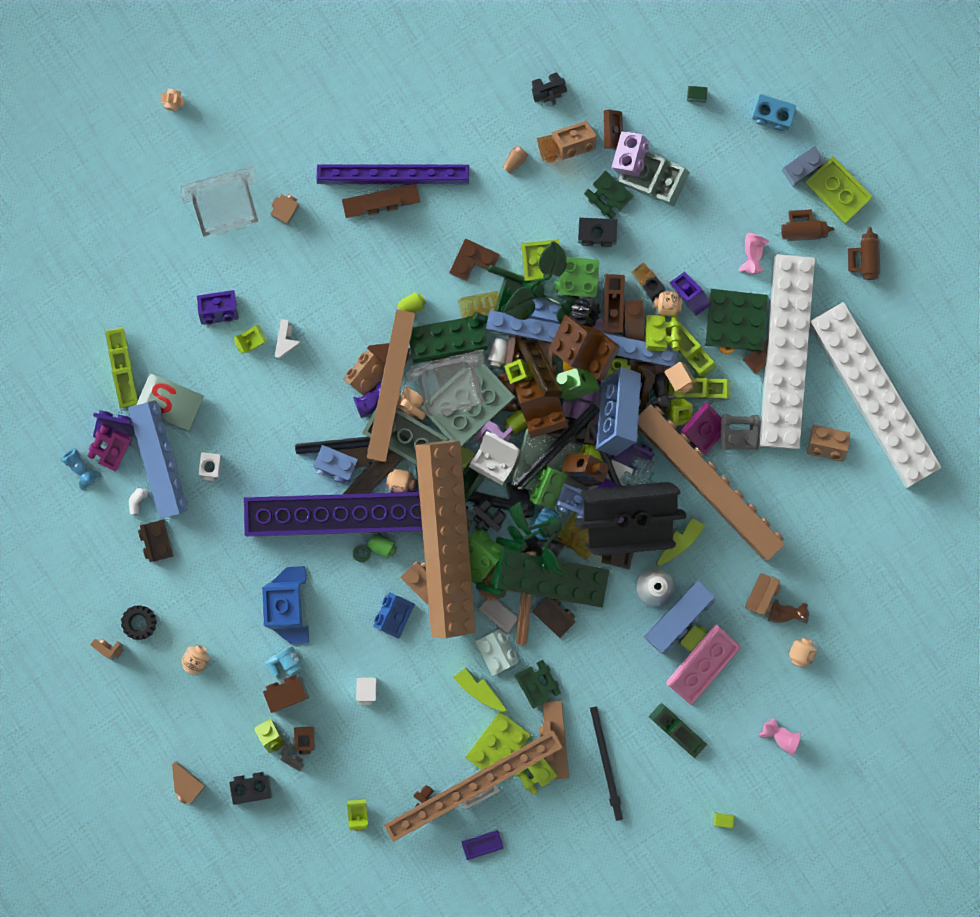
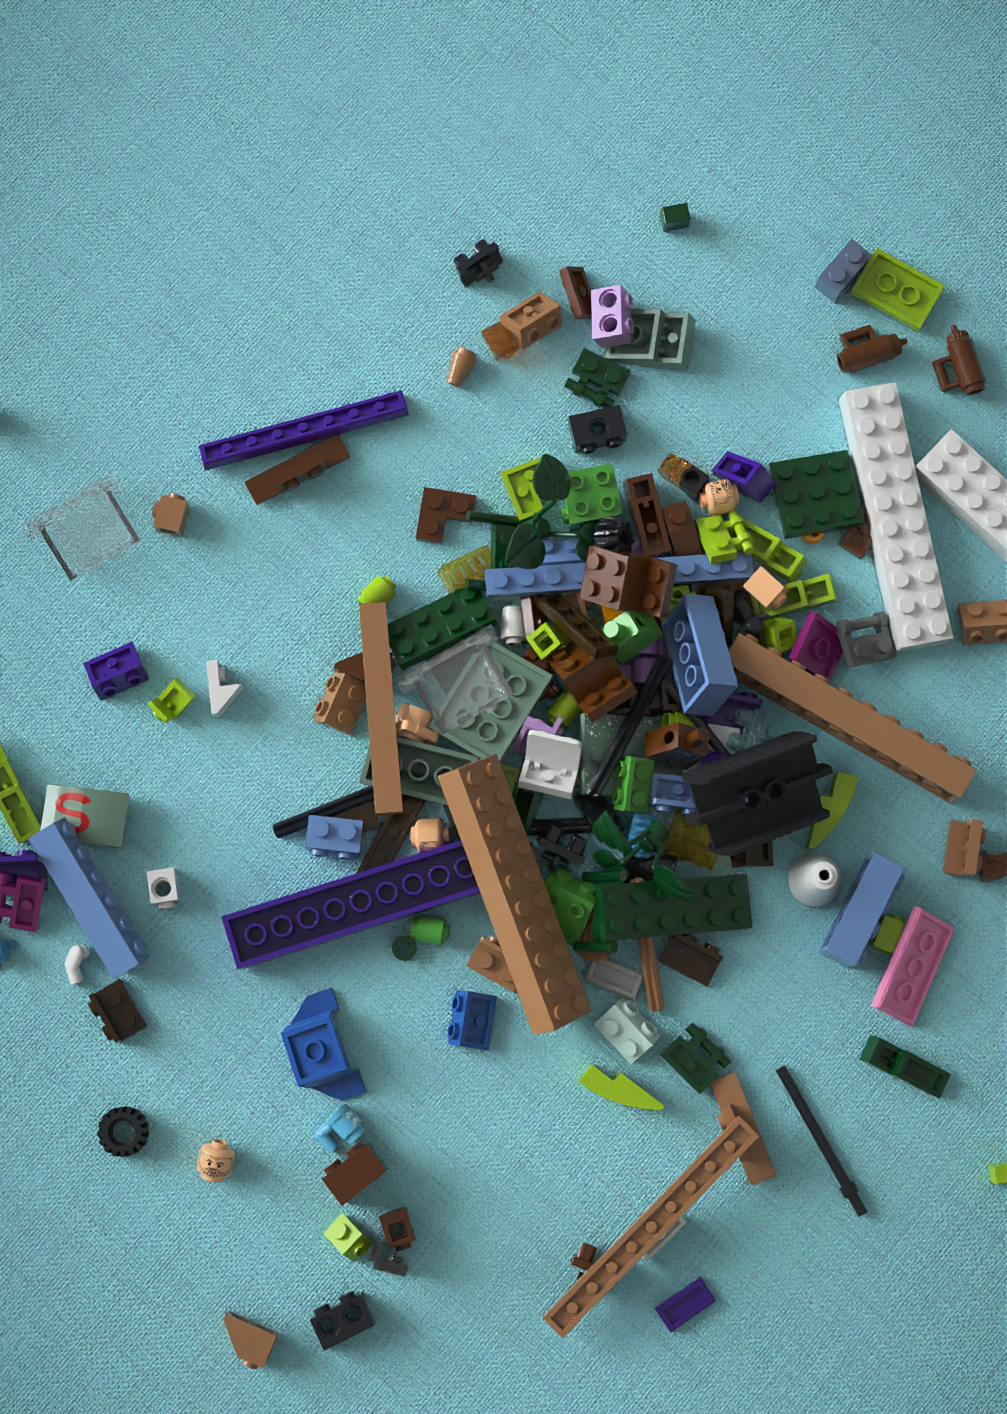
camera: 25 degrees left, 5 degrees down
(105, 648) = (89, 1182): medium nougat bracket -> none
(357, 814) = (501, 1313): lime bracket -> none
(366, 690) = (464, 1135): white brick -> none
(368, 402) = (356, 740): dark purple animal -> none
(497, 742) = (664, 1155): lime plate -> none
(542, 772) = (740, 1180): lime plate -> none
(754, 249) = (810, 392): bright pink animal -> none
(775, 107) = (781, 205): dark azure brick -> none

